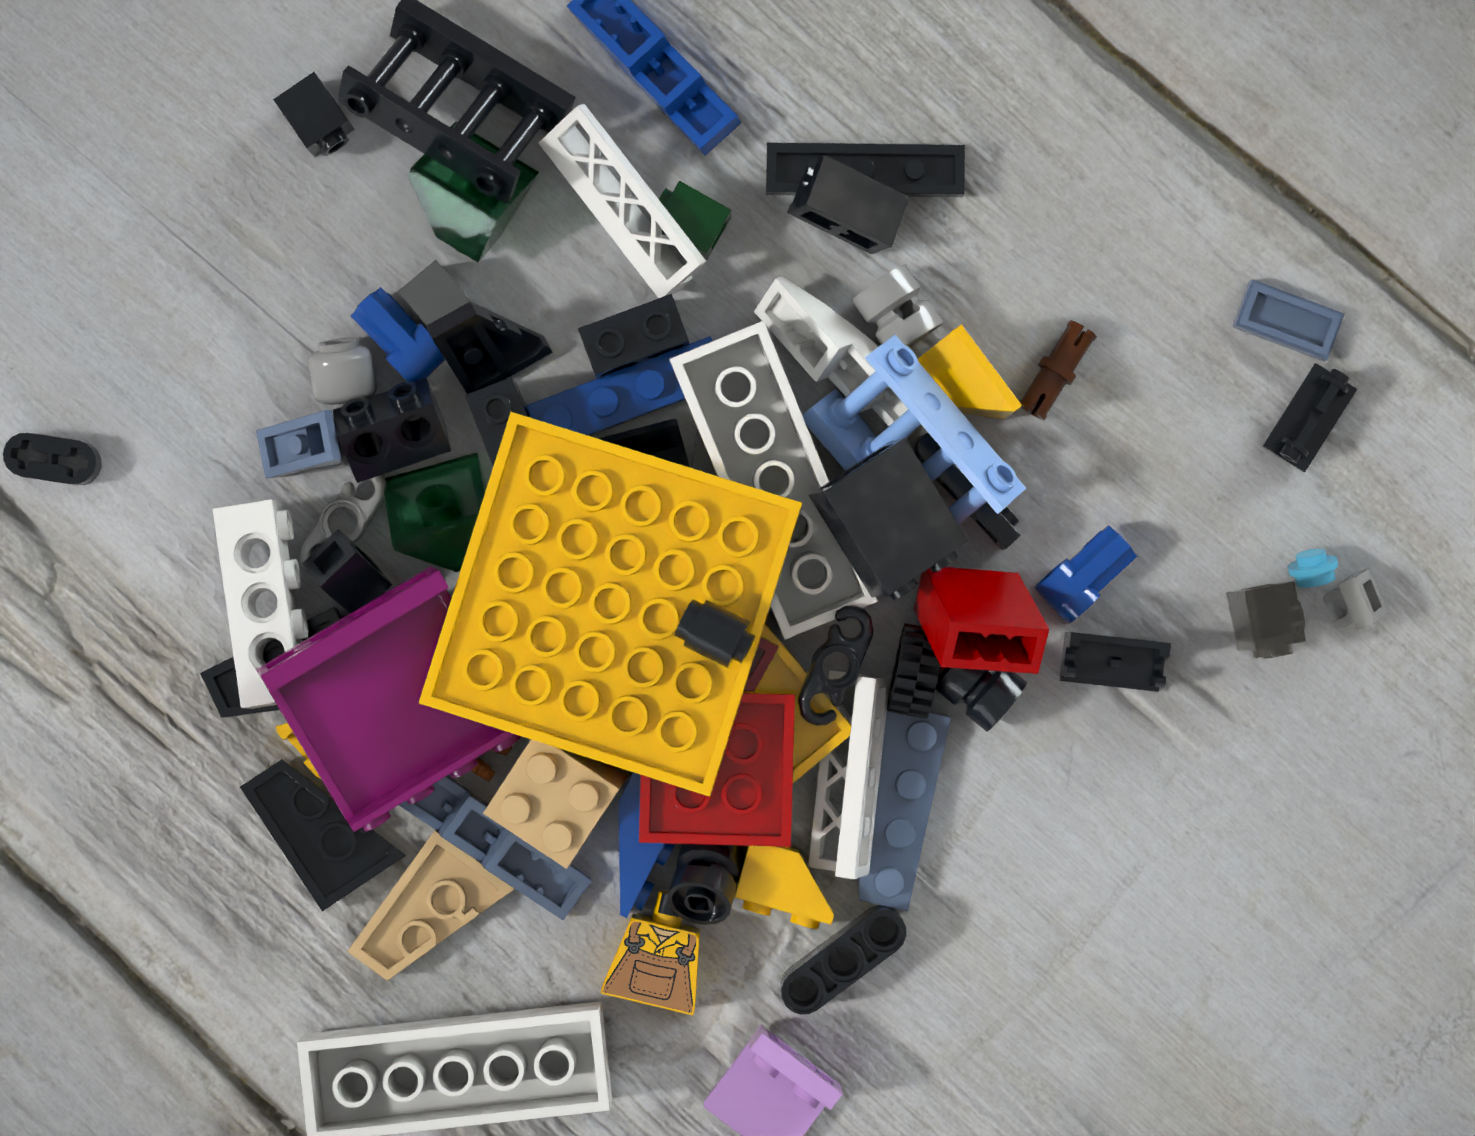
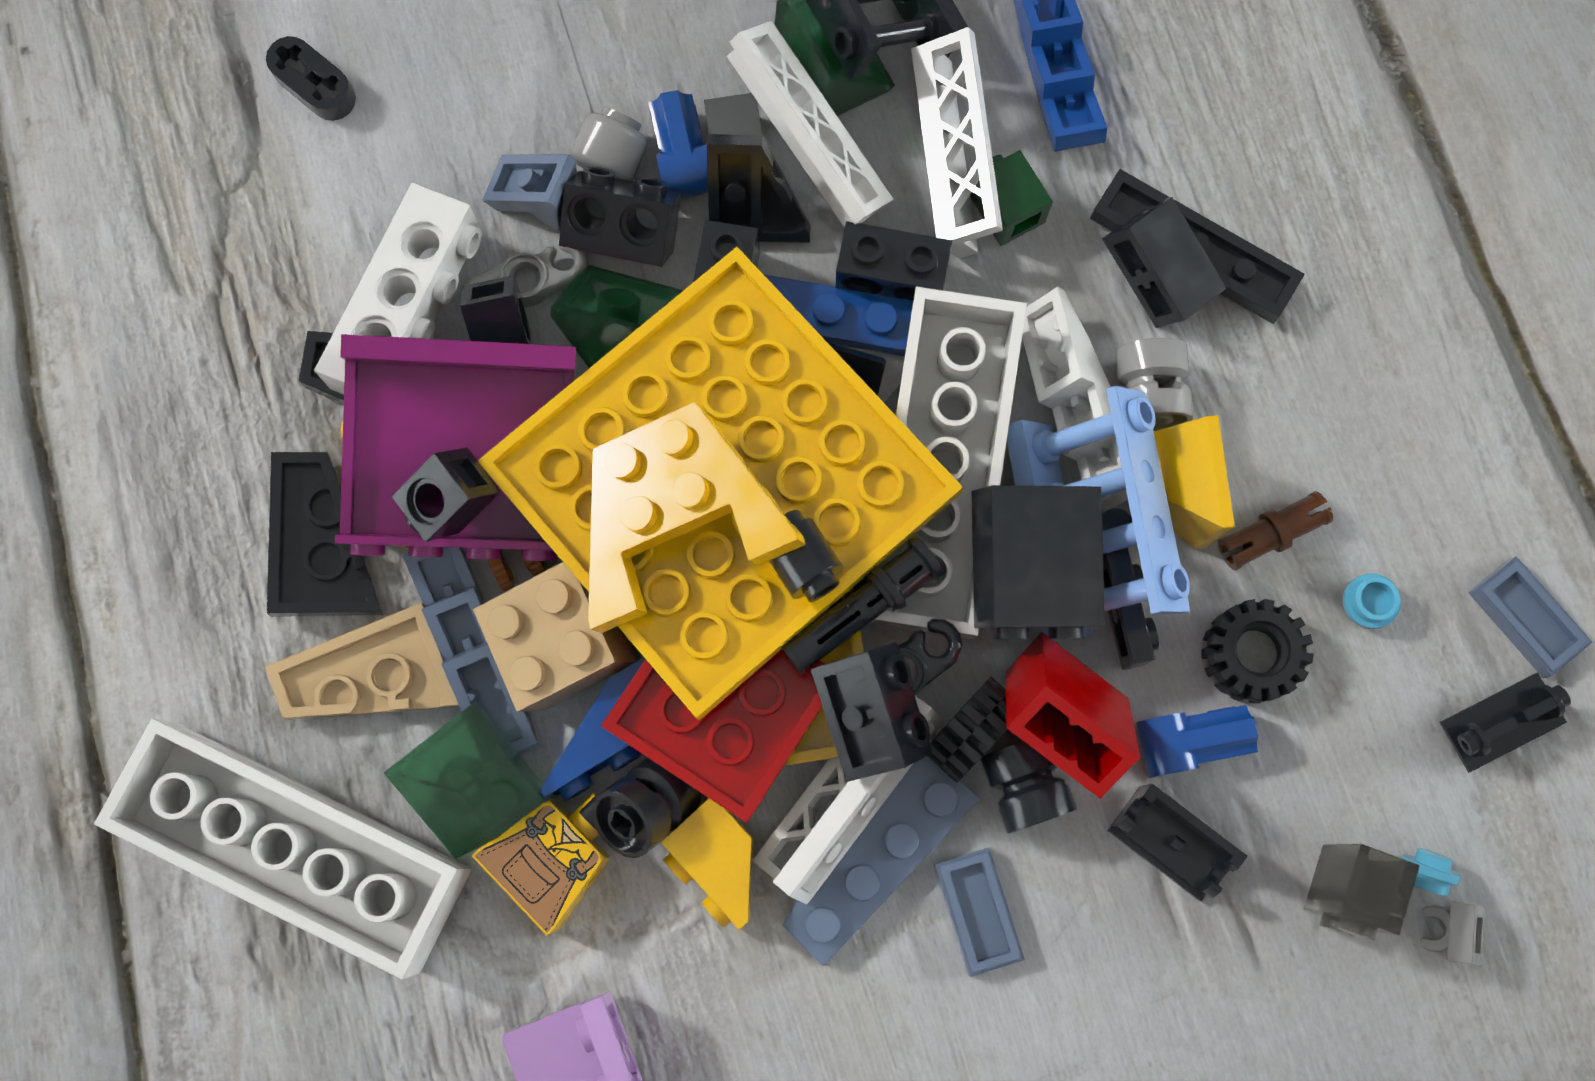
camera: 30 degrees right, 10 degrees down
(420, 728) = (465, 492): none -> black brick
(500, 264) = (807, 123): none -> white fence
(560, 941) = (467, 782): none -> clear green slope
(579, 639) = (664, 485): none -> yellow wing
(789, 613) = (892, 587): none -> black pin
(831, 981) = (704, 989): black beam -> none
(835, 710) = (872, 712): none -> black bracket
(998, 800) = (979, 912): none -> sand blue tile
(1124, 469) = (1285, 634): none -> black tyre
(1161, 382) = (1371, 601): none -> medium azure plate

